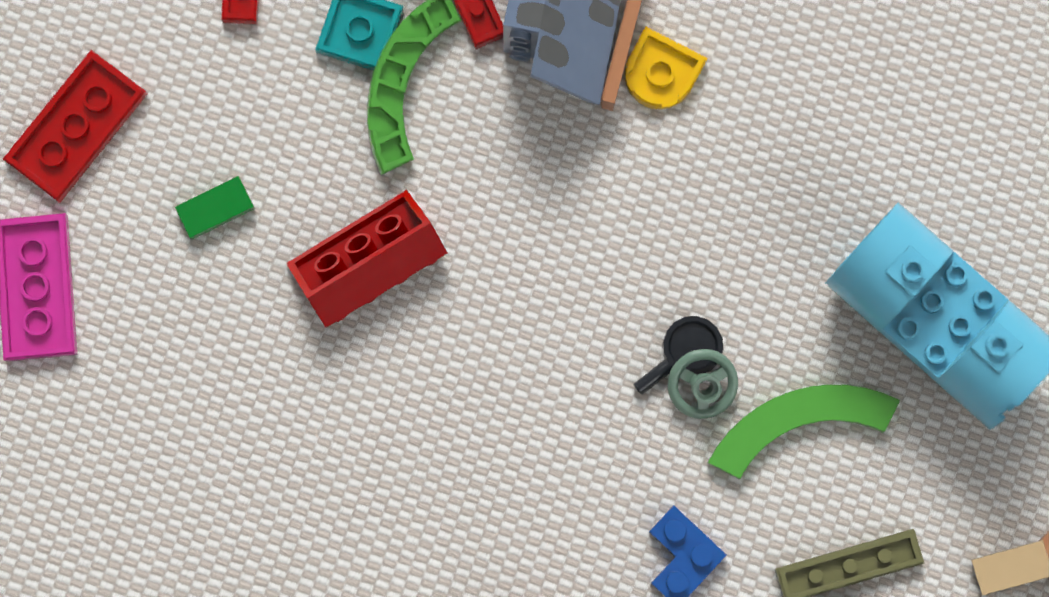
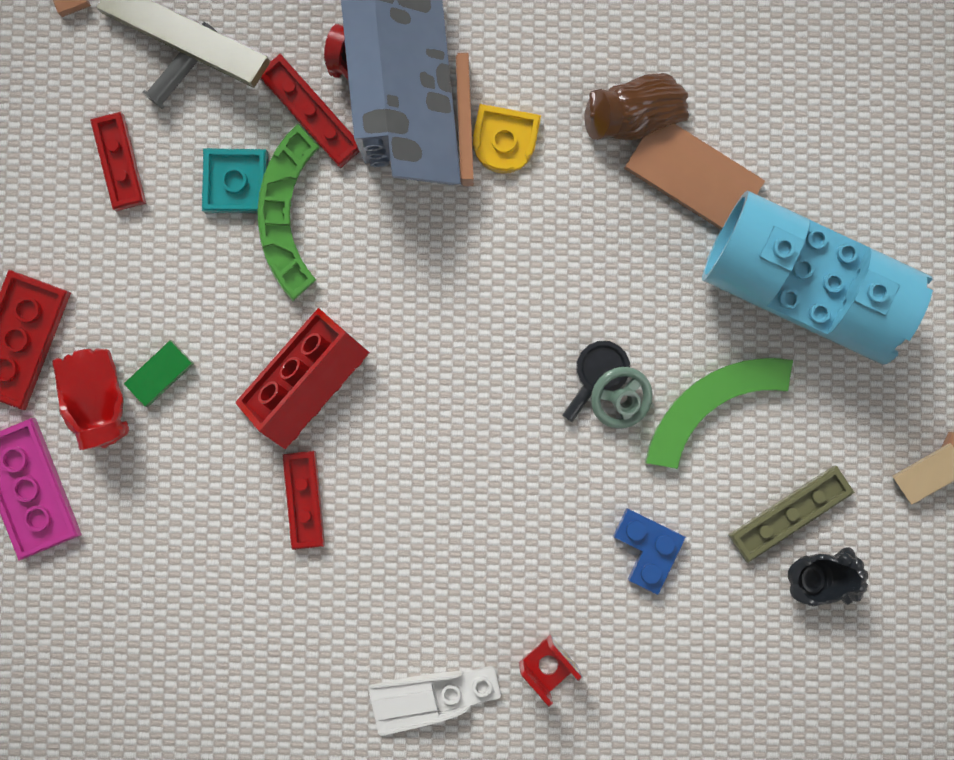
camera: 10 degrees left, 5 degrees up
(136, 210) = (90, 397): none -> red hair
(327, 389) = (303, 500): none -> red tile
(811, 81) = (636, 108): none -> reddish brown hair
(850, 166) = (692, 173): none -> nougat tile

